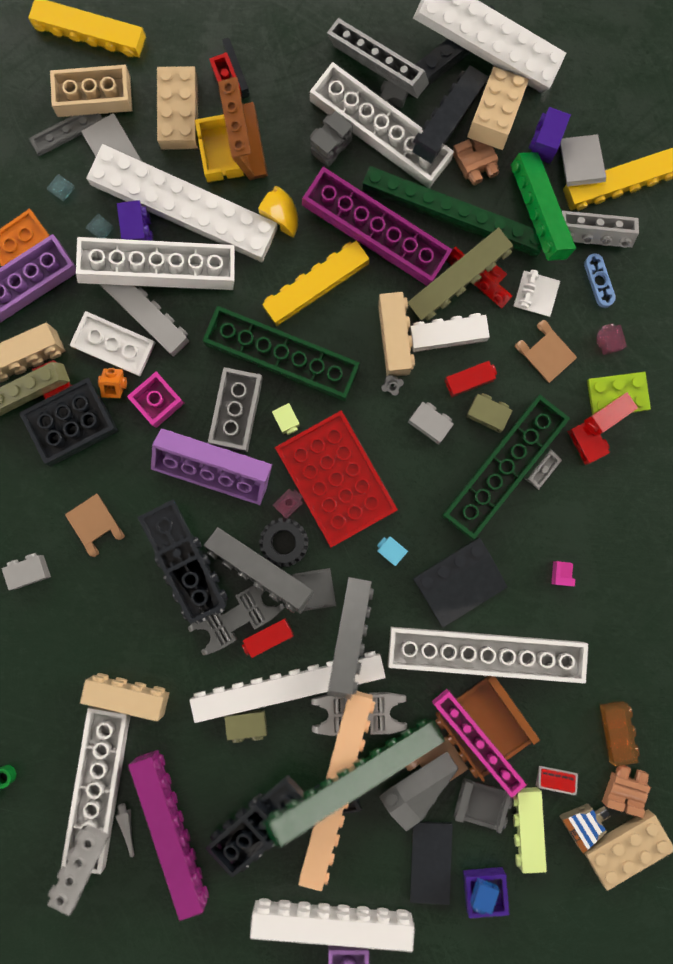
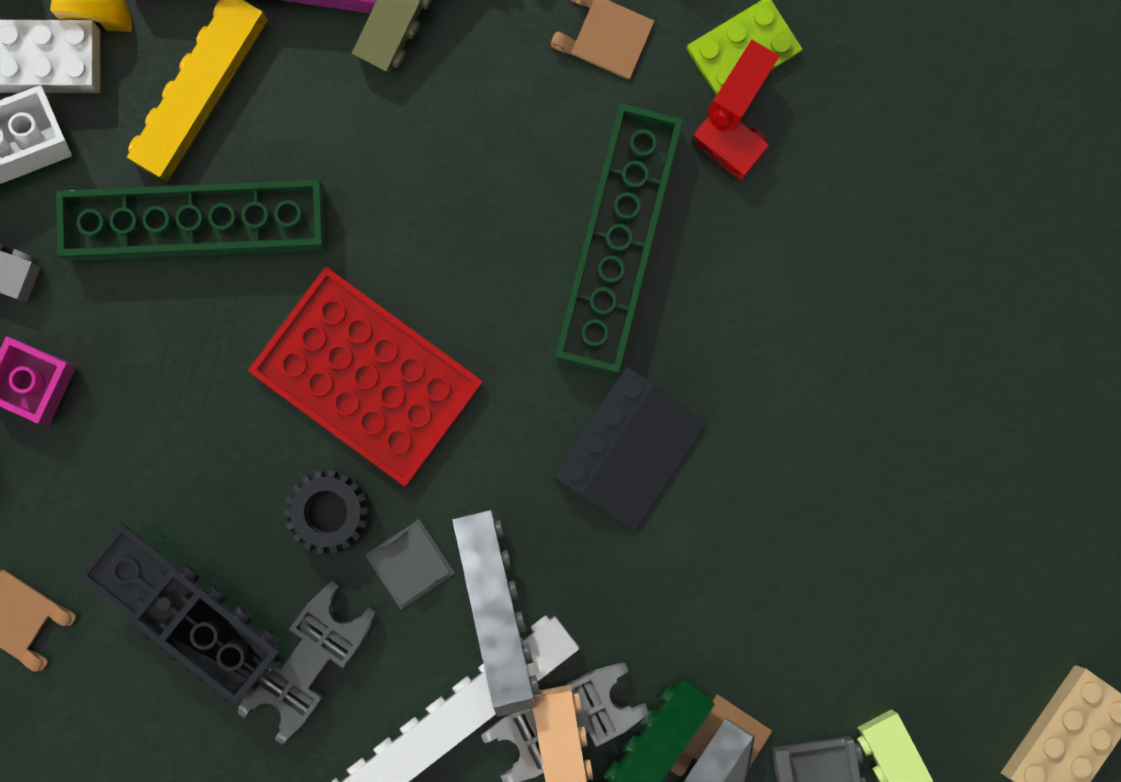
camera: 25 degrees left, 0 degrees up
(210, 466) = (158, 446): medium lavender brick -> none
(235, 409) = (159, 340): light grey brick -> none
(258, 570) = (307, 573): dark grey brick -> none
(267, 638) = (369, 671): red brick -> none
(286, 419) = (246, 319): yellowish green brick -> none
(288, 503) = (308, 447): clear pink brick -> none
(390, 379) = (381, 184): dark grey plate -> none
(391, 550) = (501, 448): medium azure brick -> none
(395, 335) = (352, 106): tan brick -> none
(431, 422) = (473, 222): light grey brick -> none
(449, 333) = (439, 71): white brick -> none
(470, 378) = (504, 127): red brick -> none
(479, 743) = (768, 683): dark pink brick -> none
(487, 654) = (720, 541): white brick -> none
(489, 413) = (556, 166): olive brick -> none
(496, 717) = (769, 653): dark orange panel -> none
(542, 468) = (677, 215): light grey slope -> none
(557, 780) = (915, 685): red slope -> none
(562, 573) = (782, 364): dark pink panel -> none
(585, 825) = (989, 733): torso -> none
(619, 733) = (978, 569): clear orange brick -> none
(627, 793) = (1029, 654): nougat hips -> none

